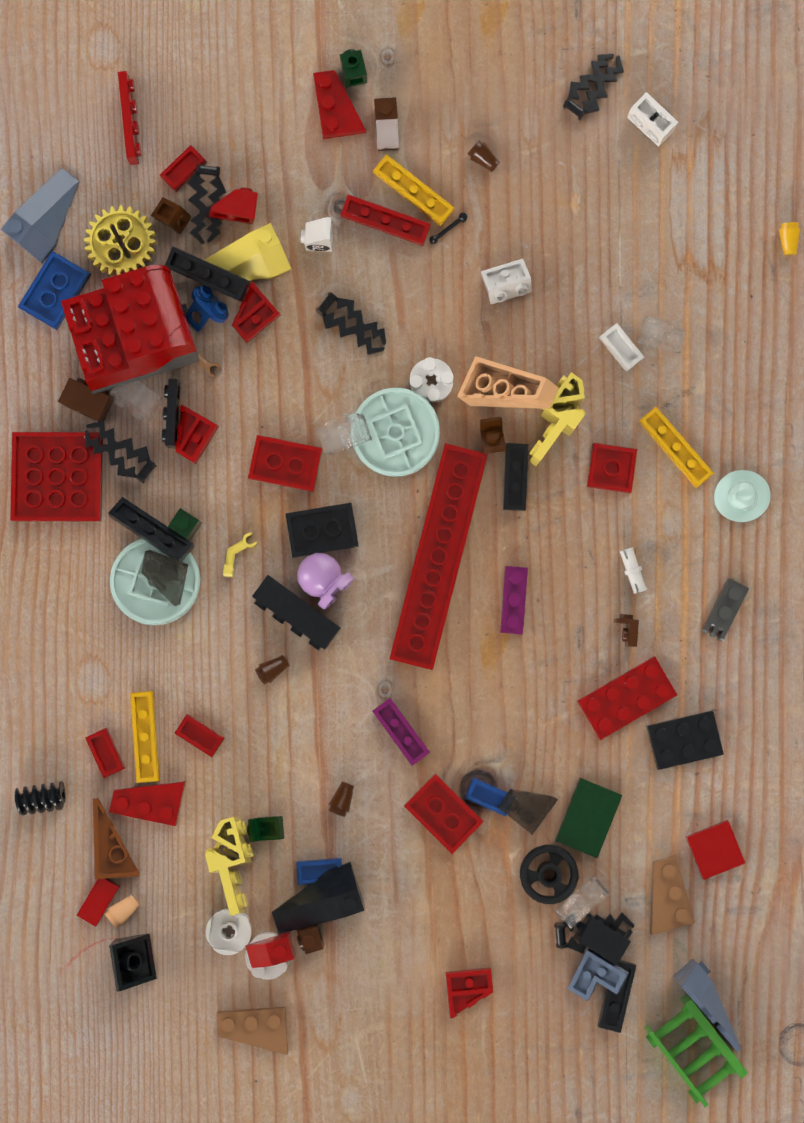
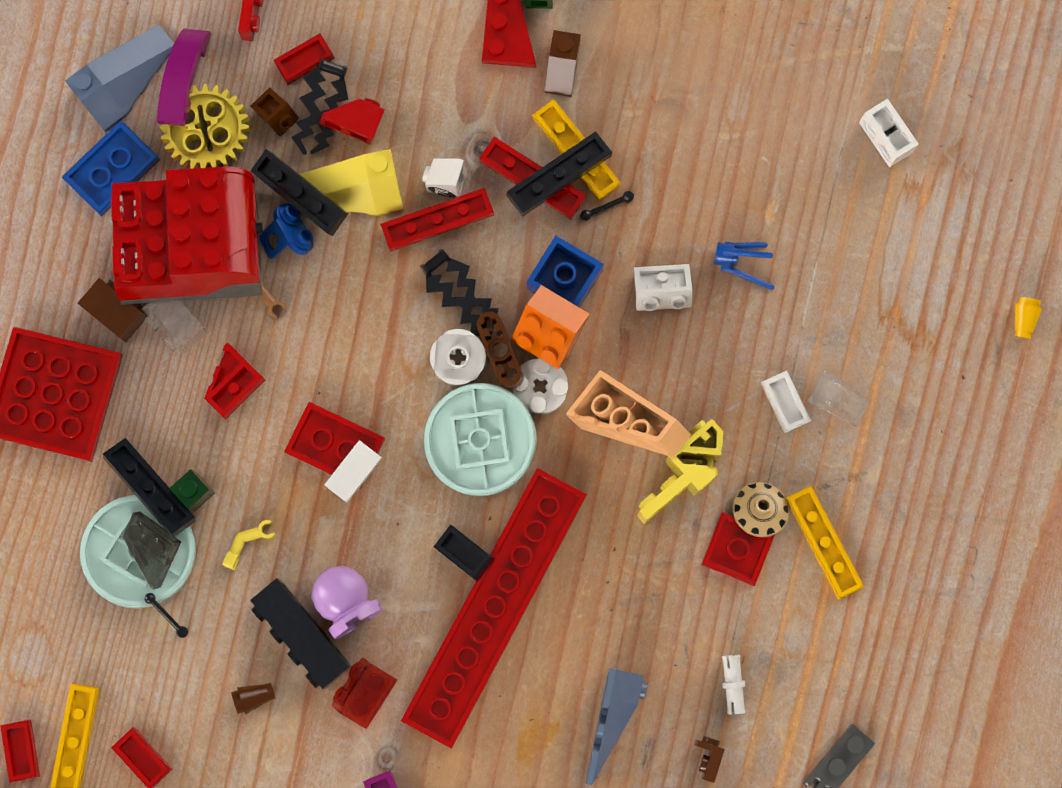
camera: 20 degrees right, 5 degrees down
(90, 204) = (179, 76): none -> magenta slope
(112, 445) = (163, 391): black piece -> none
(171, 413) = (212, 350): black plate -> none
(203, 632) = (181, 631): none -> black hinge
(254, 314) = (343, 254): red wing -> none
(305, 479) = (353, 471): none -> white tile
(320, 270) = (437, 219): none -> red plate
(322, 530) = (358, 538): black plate -> none
(344, 433) = (415, 426): clear brick -> none
(352, 366) = (446, 346): none -> white plate
(355, 645) = (363, 692): none -> clear red bracket
(405, 521) = (464, 552): none -> black tile
(406, 211) = (559, 174): none -> black plate
(408, 368) = (485, 336): none -> reddish brown beam
(428, 332) = (549, 327): none -> orange brick
(430, 290) = (565, 272): none -> blue brick
(483, 156) = (671, 129): reddish brown cone -> none
(492, 435) = (598, 472): reddish brown bracket -> none
(514, 600) = (575, 685): magenta plate -> none
(515, 477) = (614, 531): black plate -> none
(551, 242) = (728, 253): none -> blue plant
(551, 601) = (618, 704): none -> sand blue wedge
(592, 105) = (834, 67): black piece -> none
(620, 442) = (758, 521): none -> tan dish
(742, 496) = (893, 624): light aqua hat -> none

